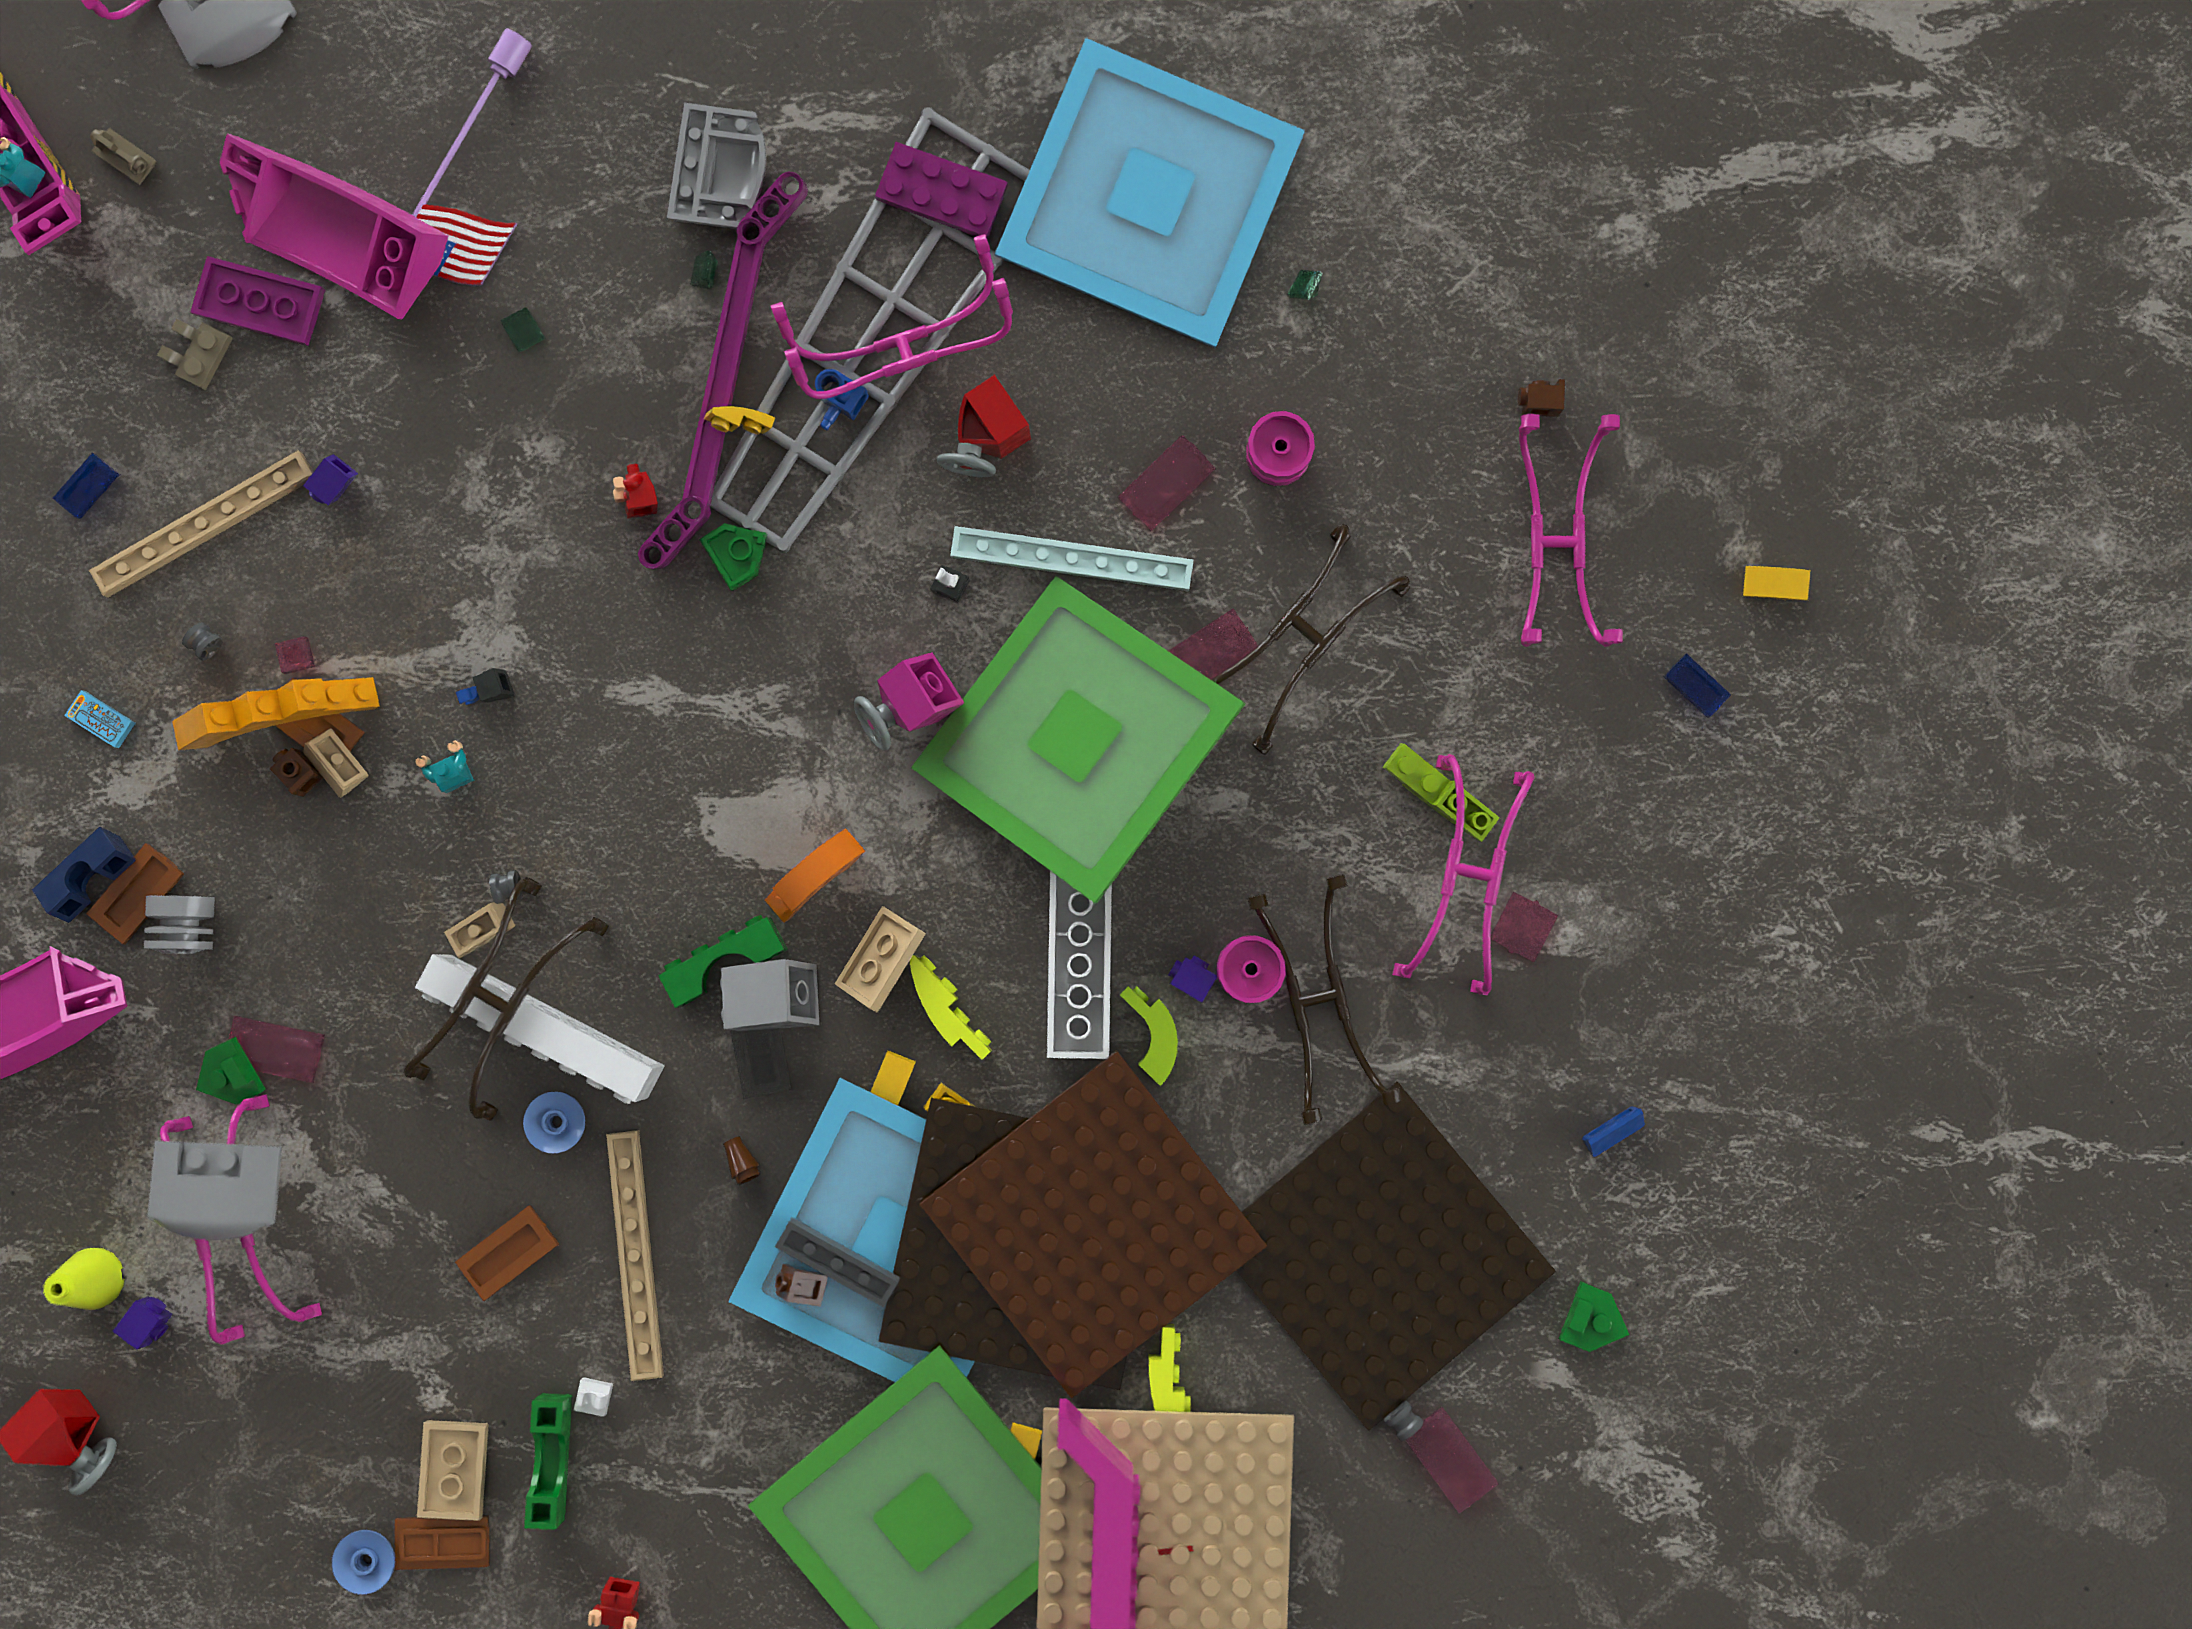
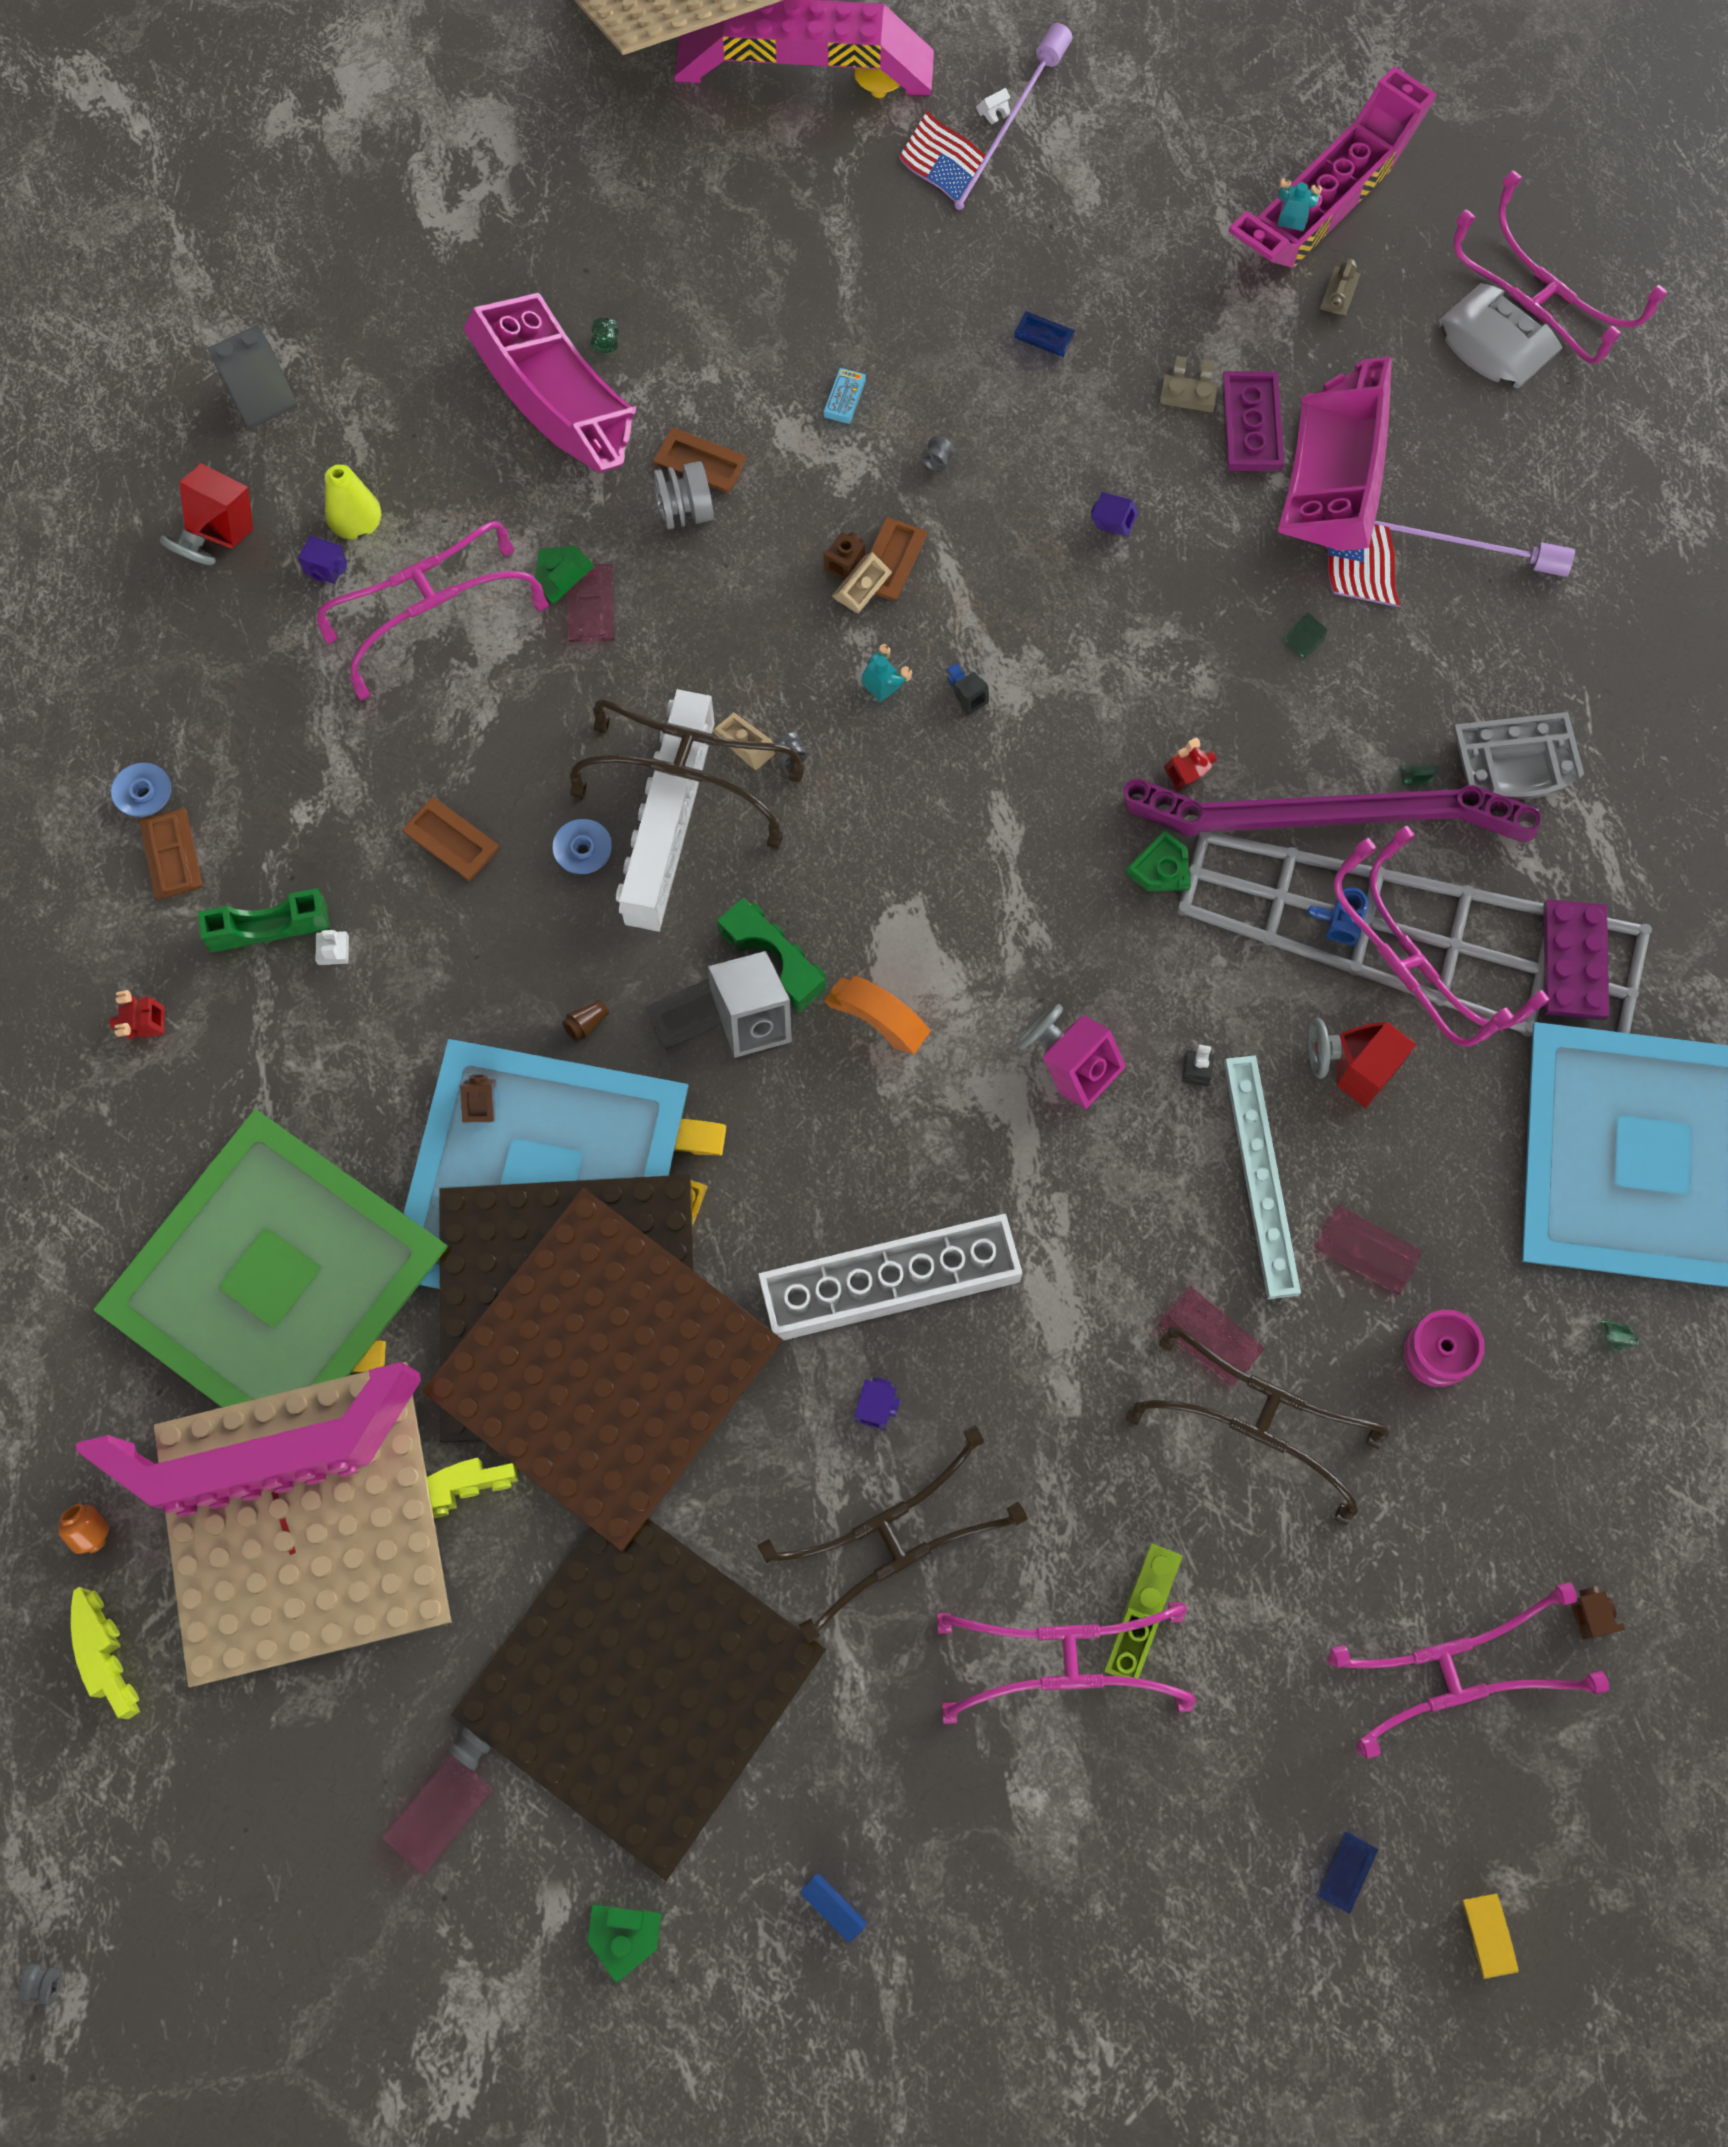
camera: 70 degrees right, 15 degrees down
(64, 888) = (689, 404): dark blue arch -> none
(201, 524) = (1040, 428): tan tile -> none
(214, 1188) = (455, 571): light grey slope -> none
(257, 710) = (910, 533): light orange arch -> none
(294, 655) = (948, 528): clear pink plate -> none
(452, 1470) = (239, 843): tan plate -> none
(635, 1255) = (473, 950): tan tile -> none
(729, 418) = (1288, 820): yellow slope -> none
(837, 1262) = (508, 1127): dark grey plate -> none
(880, 959) = (813, 1094): tan plate -> none
(936, 999) = (786, 1160): neon yellow slope -> none
(1077, 738) = (1085, 1222): baseplate -> none
(1164, 1041) = (811, 1389): lime arch -> none
(1267, 961) = (897, 1477): dark pink wheel -> none
(1523, 926) = (1027, 1745): clear pink piece -> none

